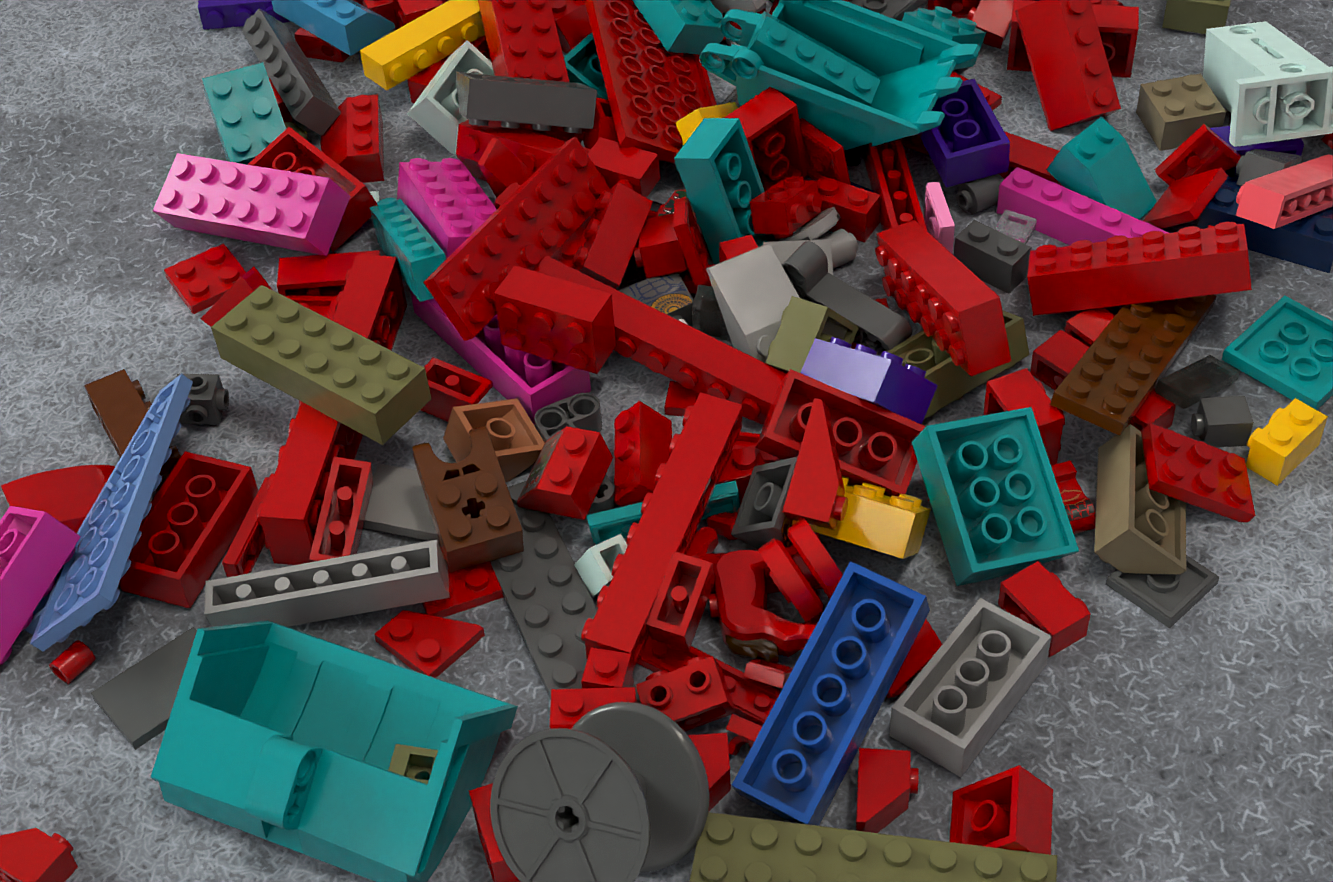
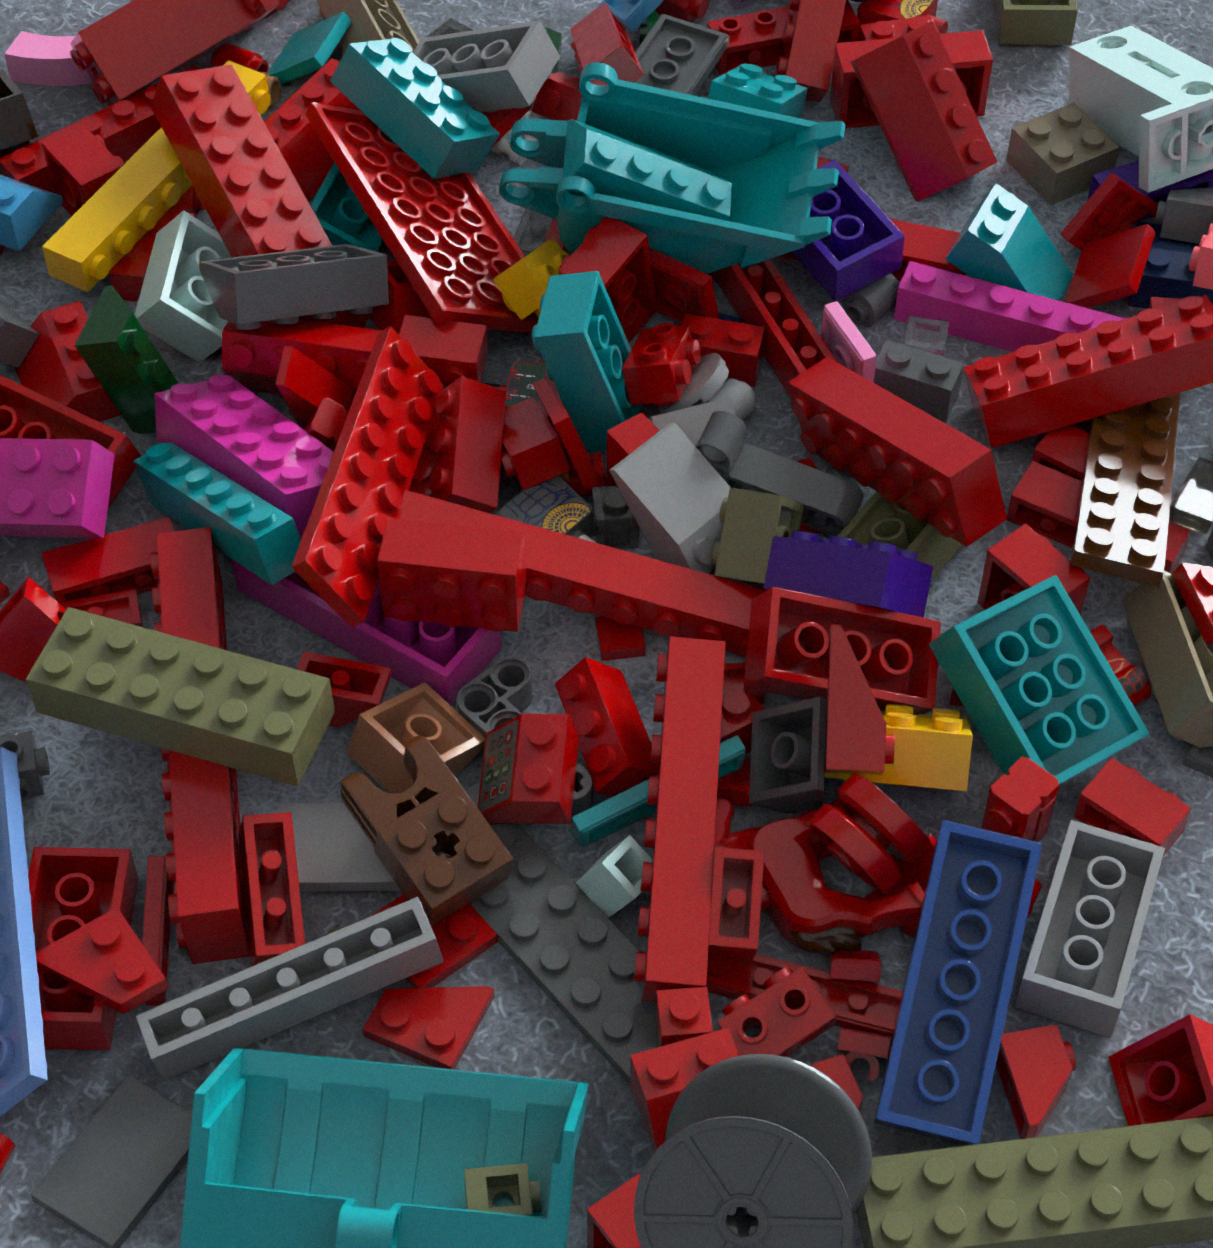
camera: 20 degrees left, 5 degrees up
(197, 538) = (105, 962): none -> red wing
(386, 134) = (124, 360): none -> dark green slope
(946, 581) = (1021, 801): none -> red brick

